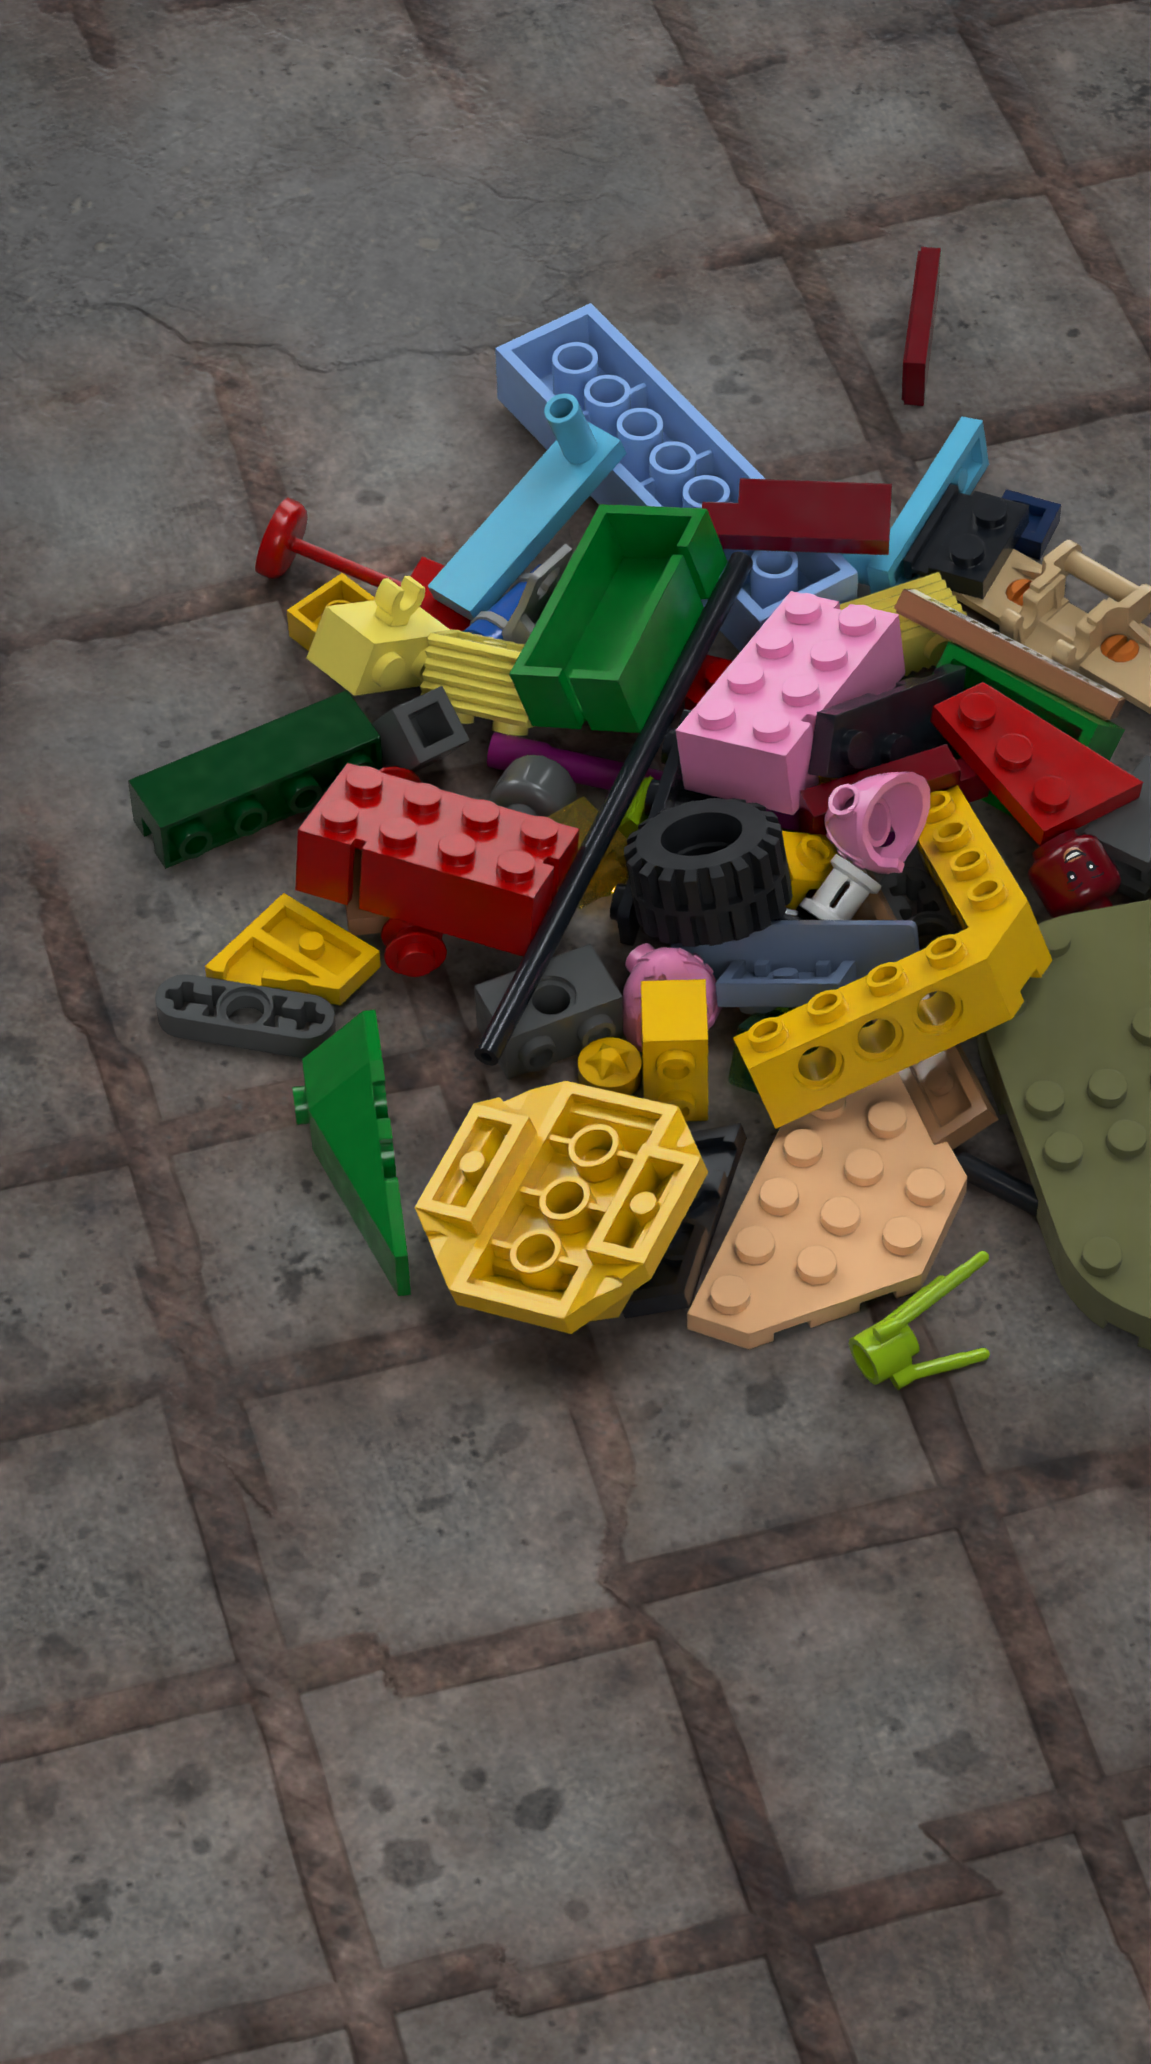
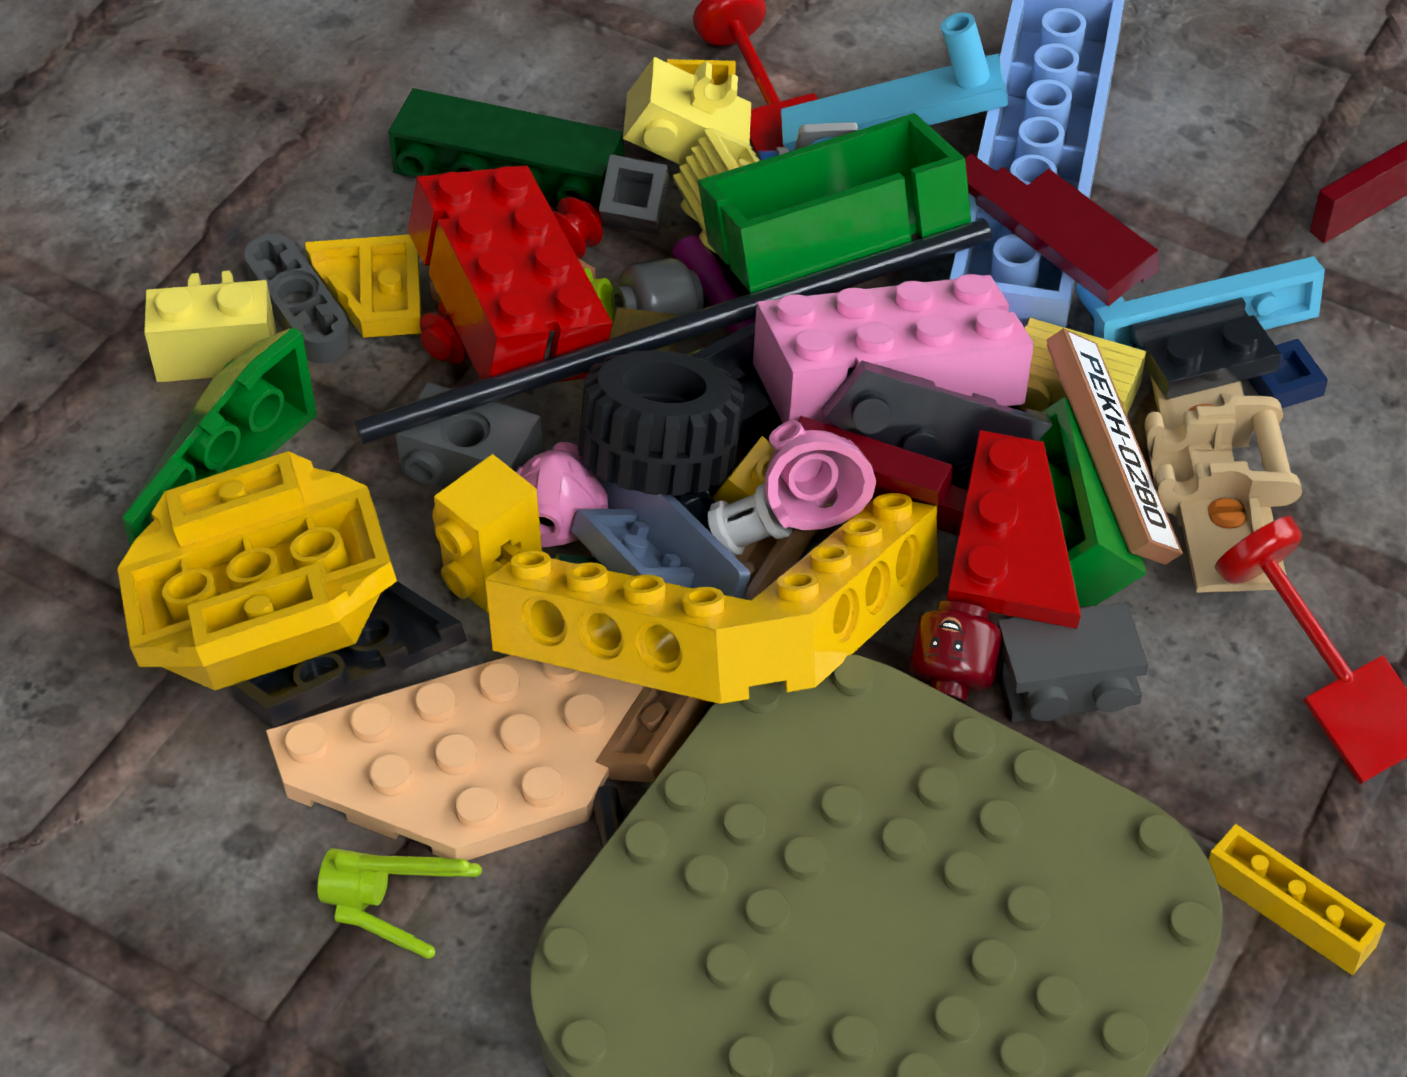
camera: 45 degrees right, 0 degrees up
(231, 1084) = (205, 326): none -> light yellow brick

